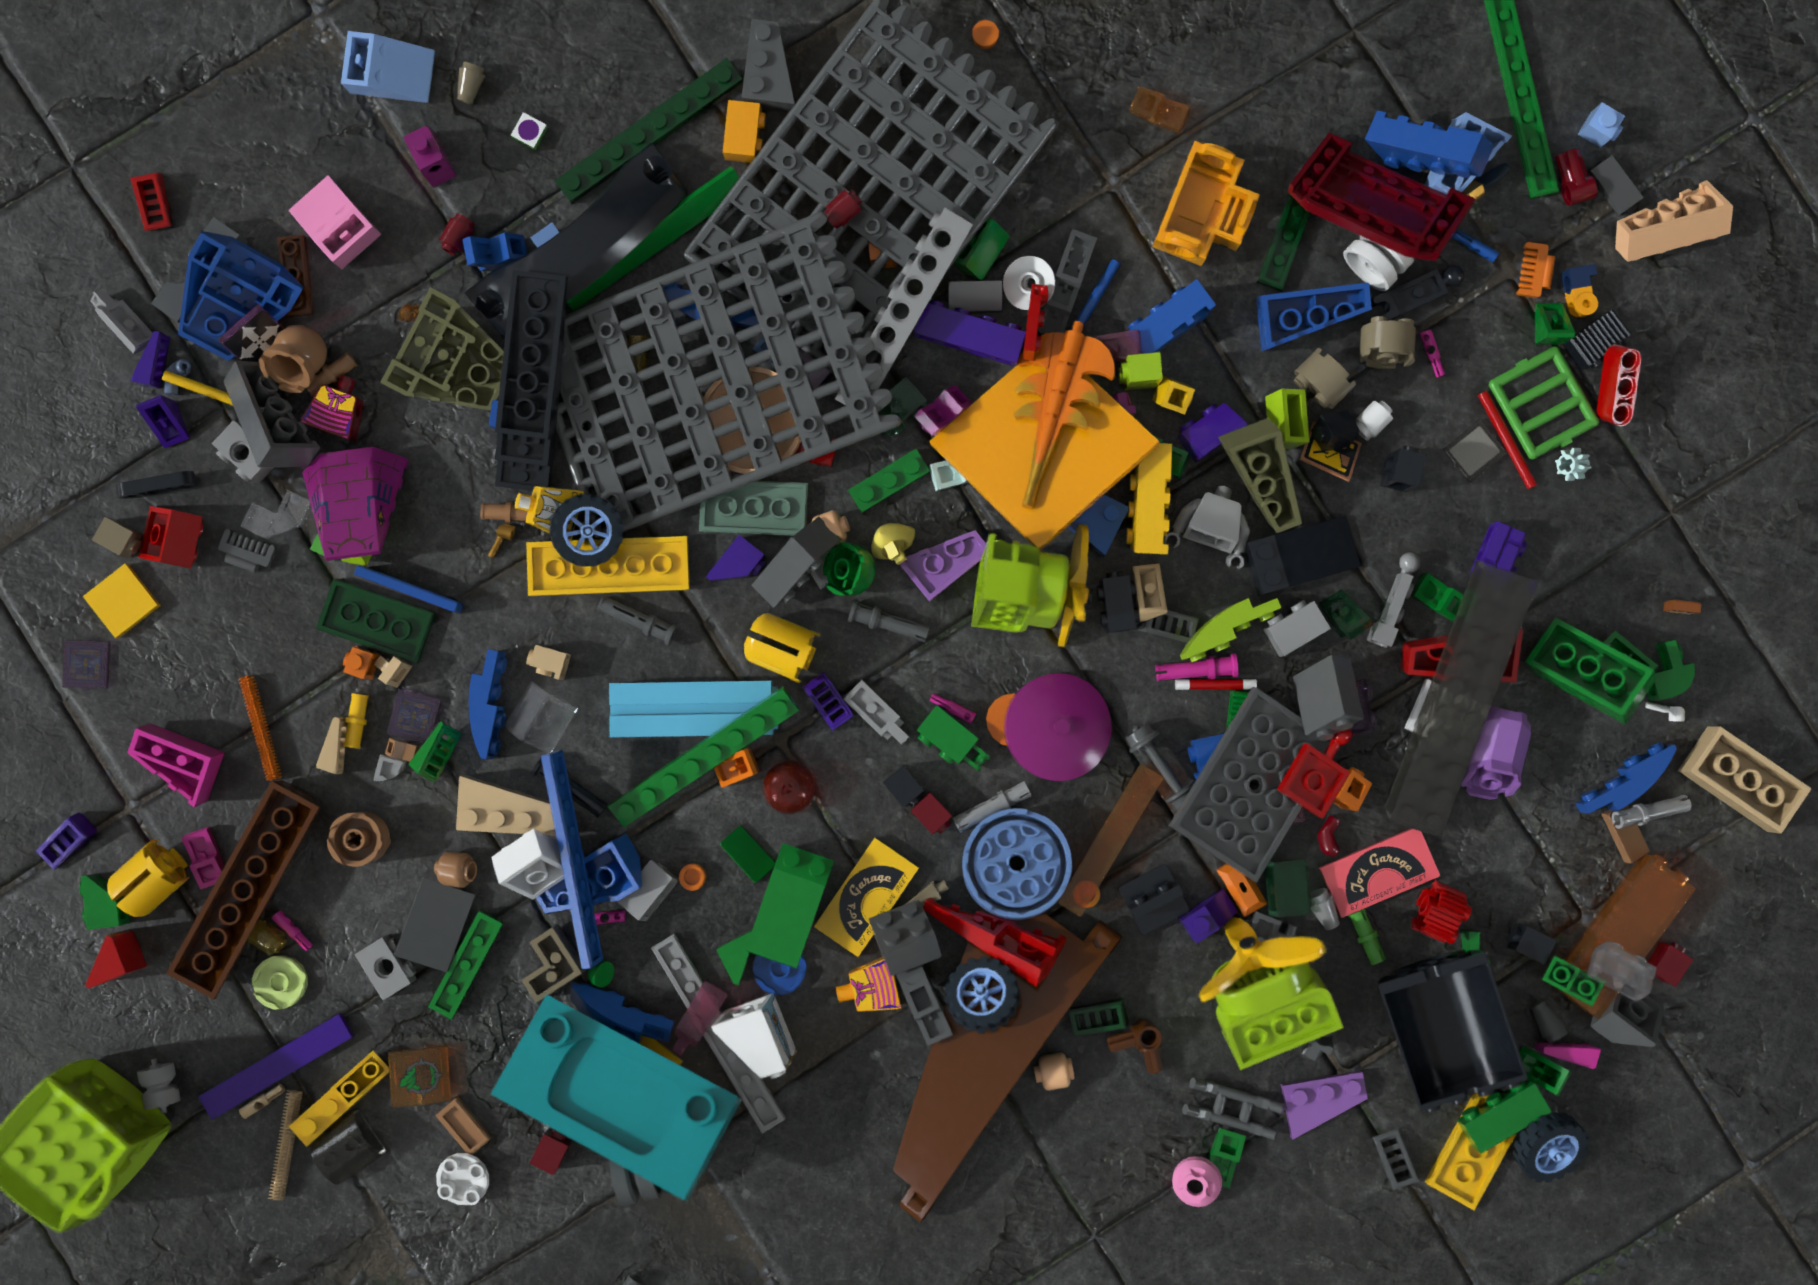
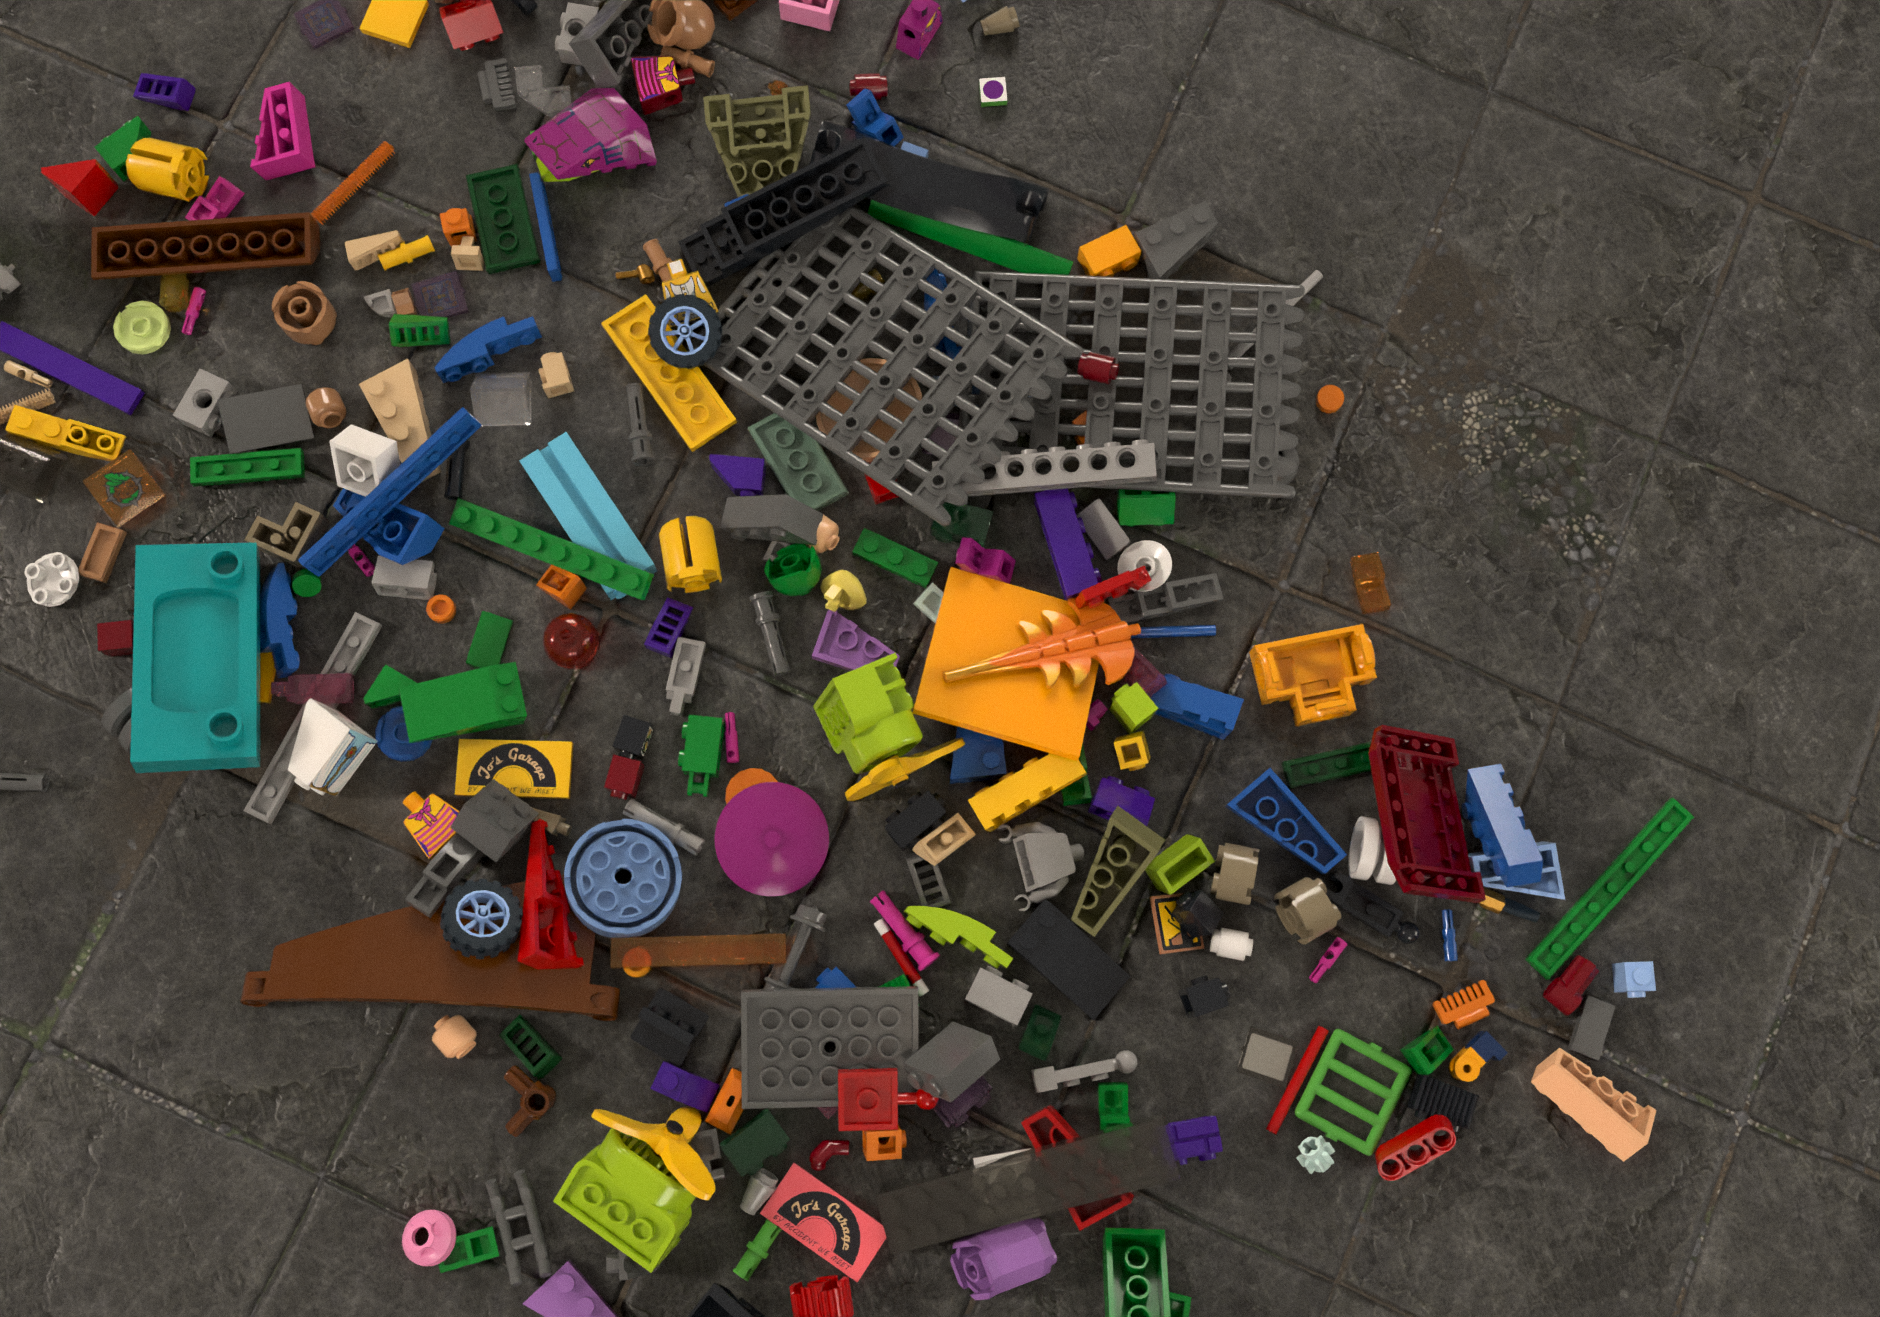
camera: 45 degrees right, 10 degrees down
(649, 129) = (1060, 182): dark green plate -> none

